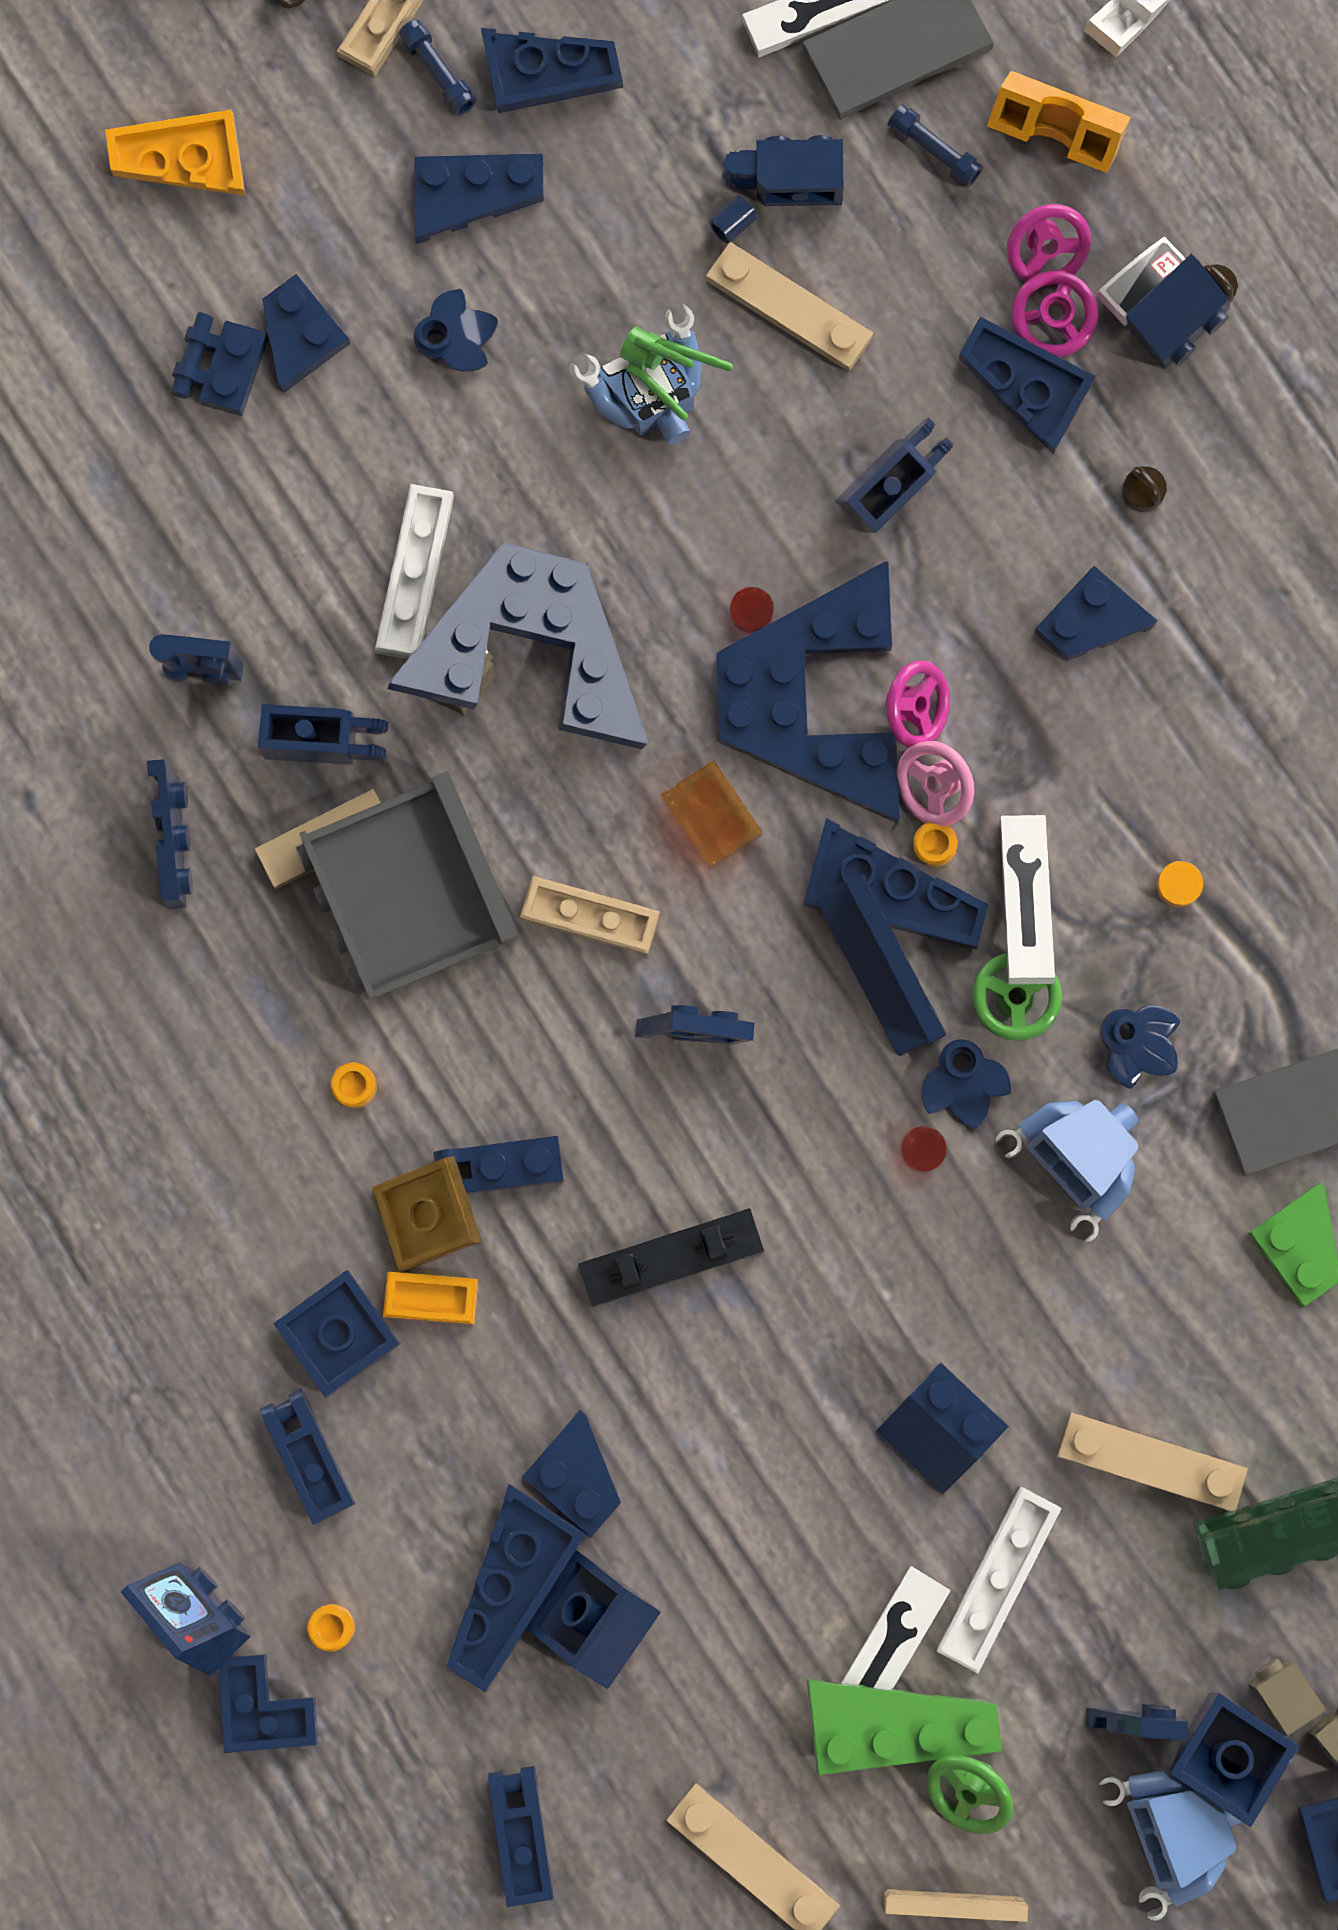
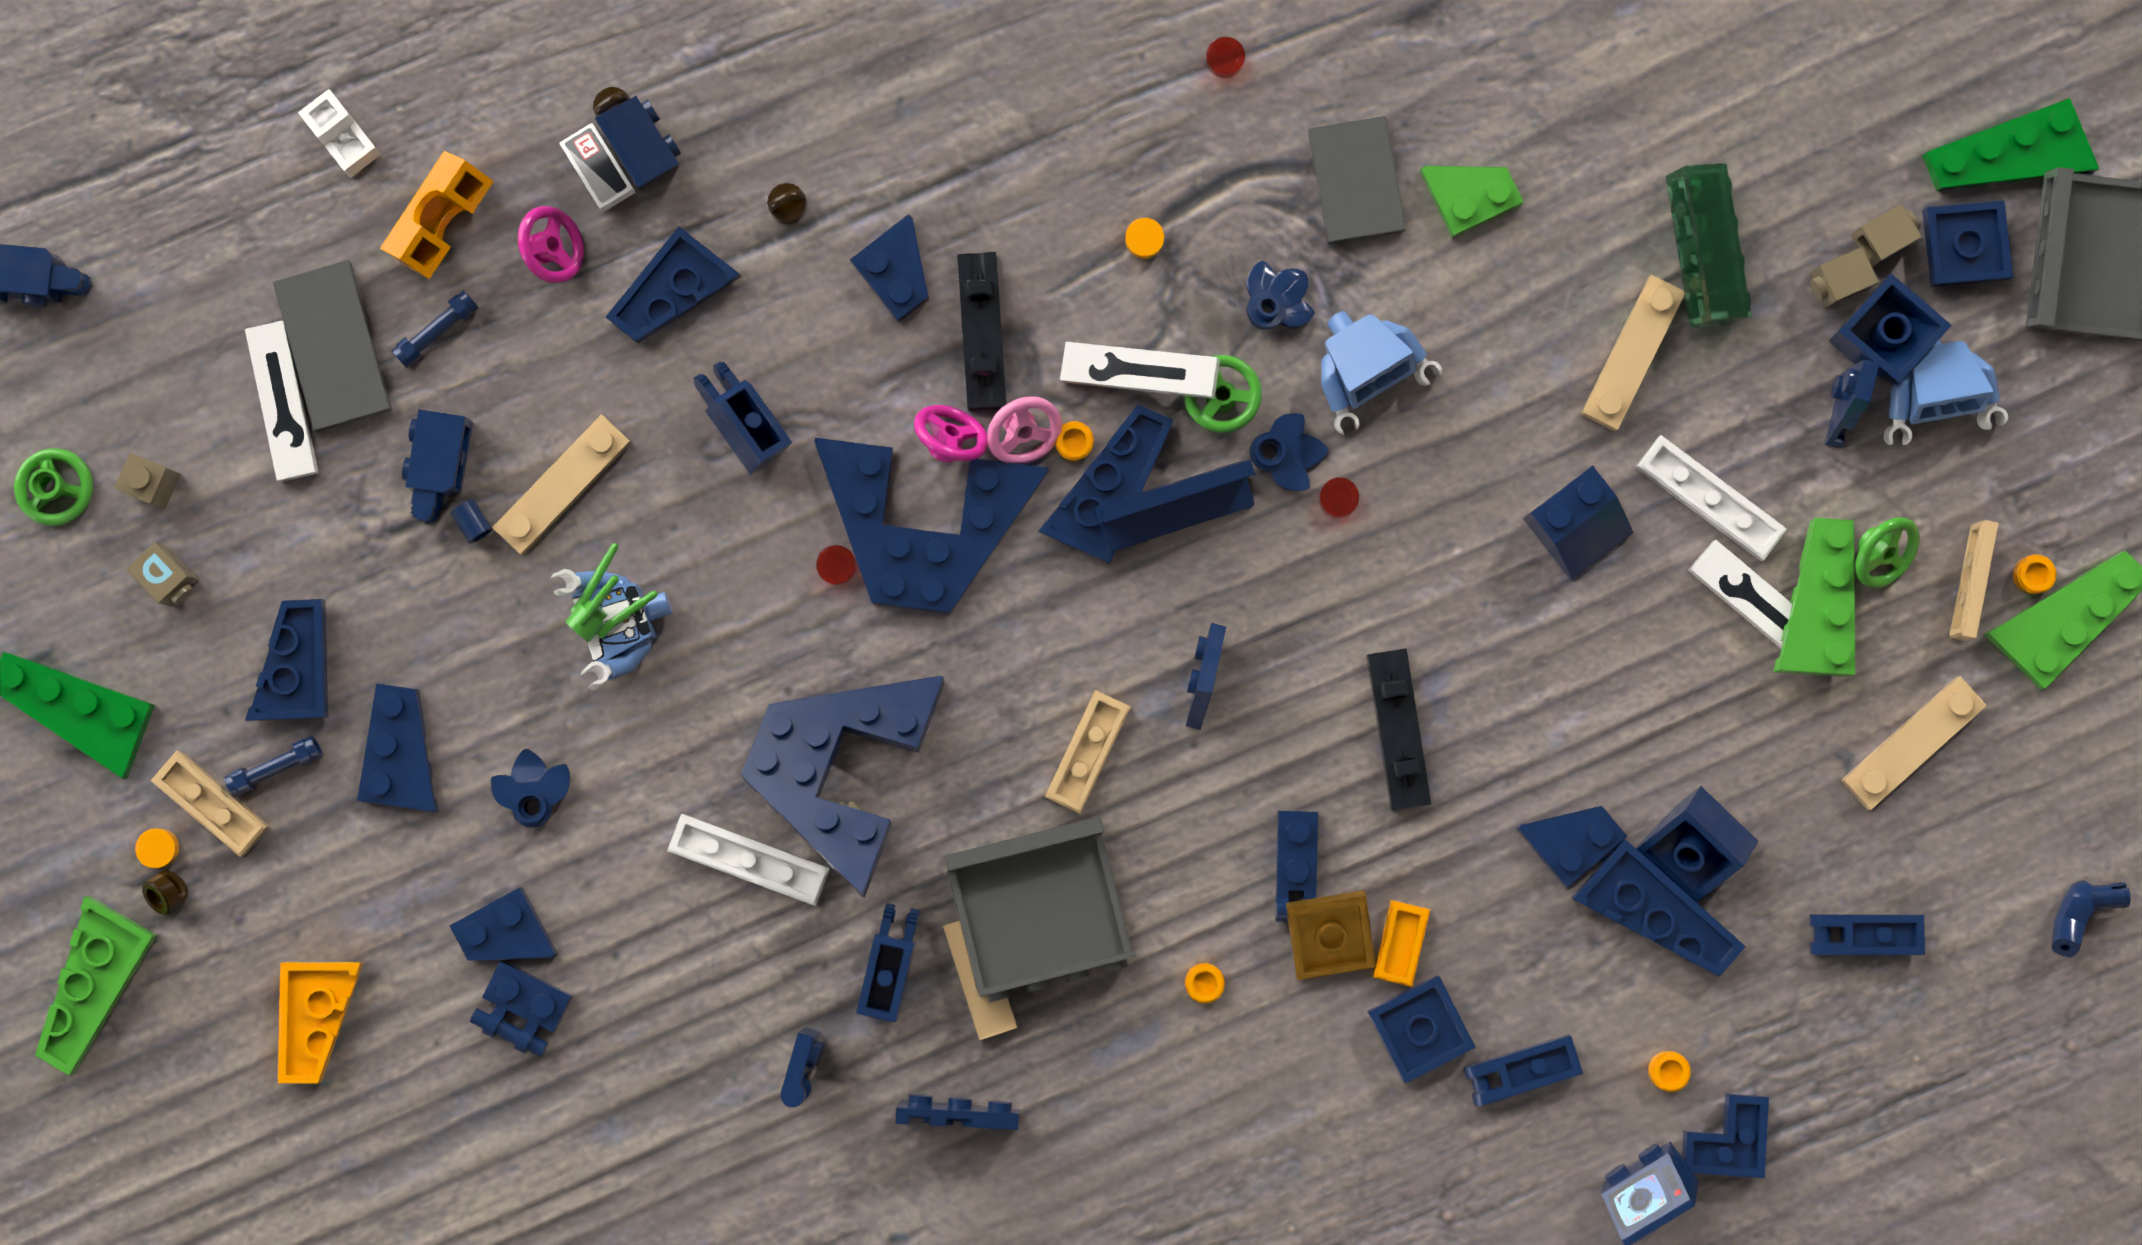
camera: 90 degrees left, 5 degrees up
(711, 814) = (1017, 630): clear orange plate -> none
(1041, 722) = (982, 331): none -> black hinge
(1061, 299) = (587, 236): dark pink piece -> none

